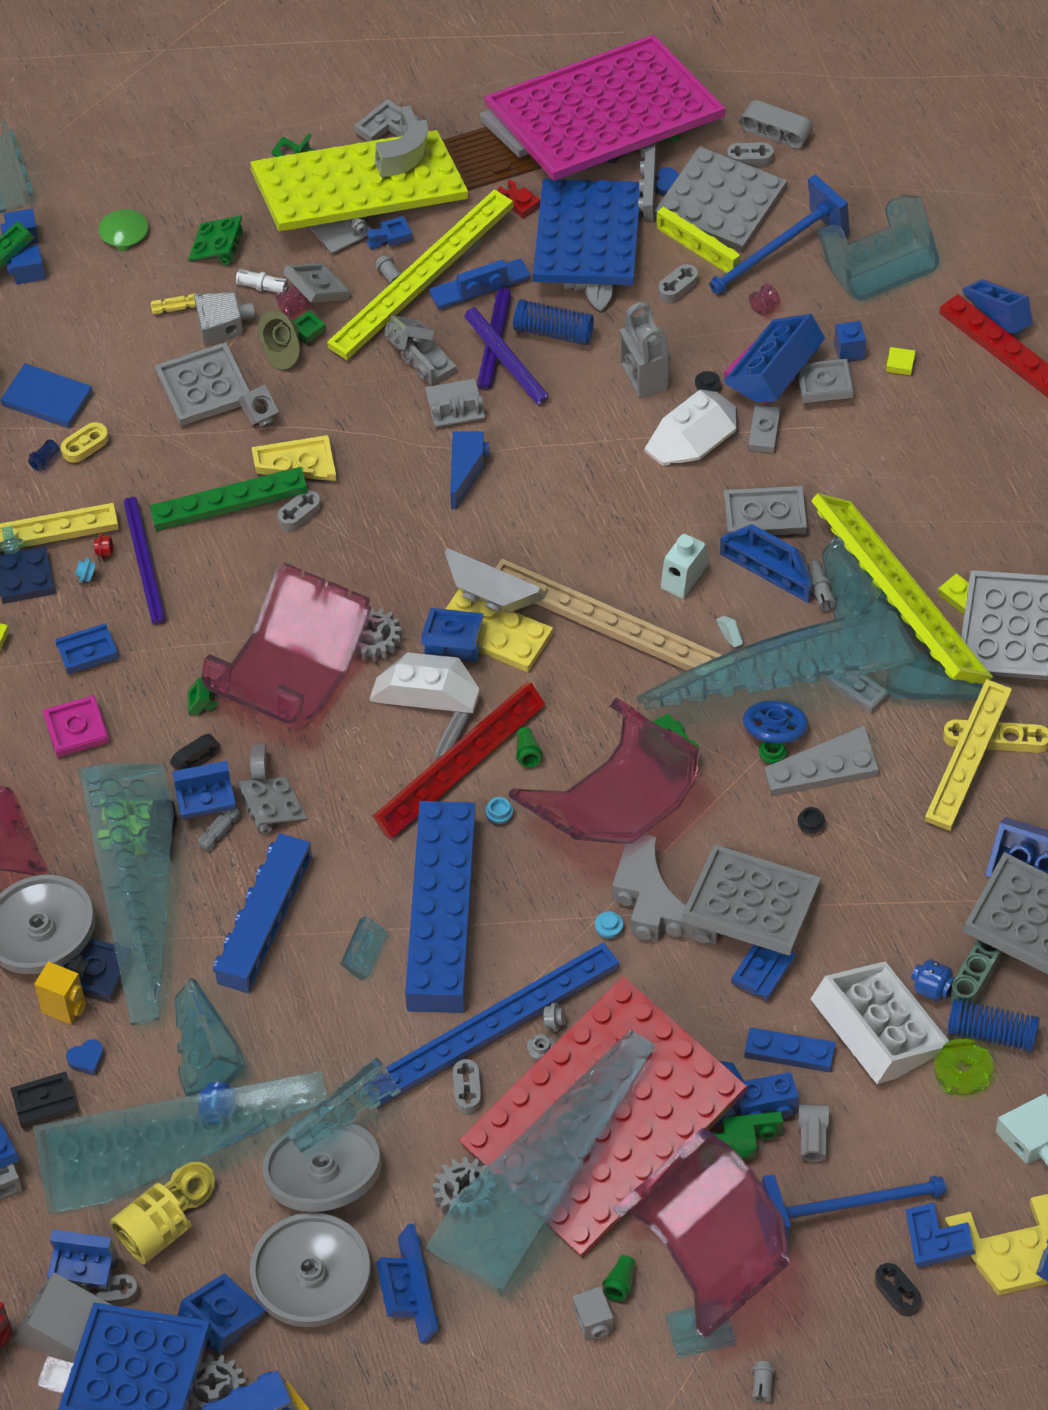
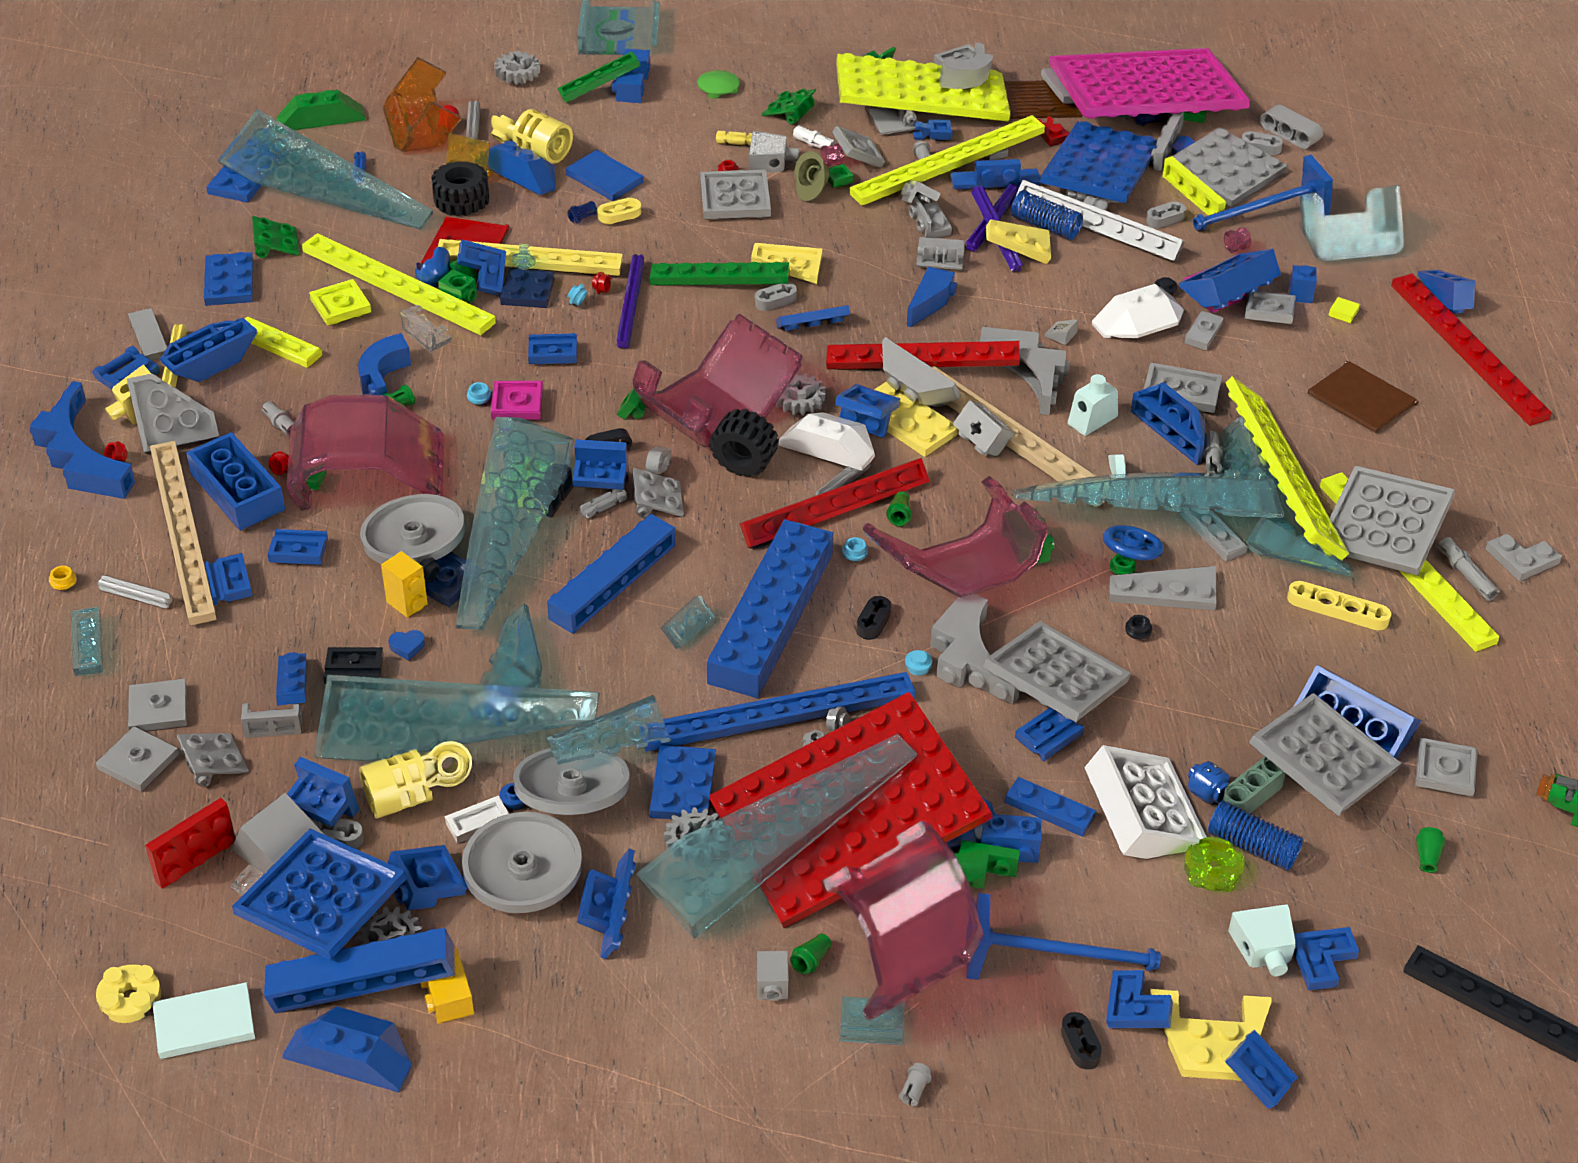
camera: 15 degrees right, 10 degrees down
(30, 729) = (478, 393): none -> medium azure plate
(180, 348) = (728, 165): none -> red plate
(242, 1233) = (467, 821): none -> white tile
(261, 395) = (776, 207): light grey brick -> none
(262, 1203) = (510, 798): none -> blue plate
(343, 718) = (744, 442): none -> black tyre
(350, 530) = (813, 318): none -> blue plate
(427, 1131) = (682, 781): none -> blue plate
(461, 1086) = (739, 757): light grey beam -> none
(487, 547) = (933, 354): none -> red plate
(537, 364) = (1021, 239): none -> light yellow wing
(541, 885) = (869, 616): none -> black beam
(587, 516) = (1037, 366): none -> light grey arch
(593, 625) = (983, 429): none -> brick
(613, 313) = (1111, 224): none -> plate
(618, 471) = (1062, 331): none -> light grey slope
(644, 352) = (1116, 245): light grey brick -> none
(813, 1124) = (1048, 874): light grey piece -> none
(949, 469) = (1362, 396): none -> reddish brown piece
(968, 755) = (1304, 610): light yellow plate -> none

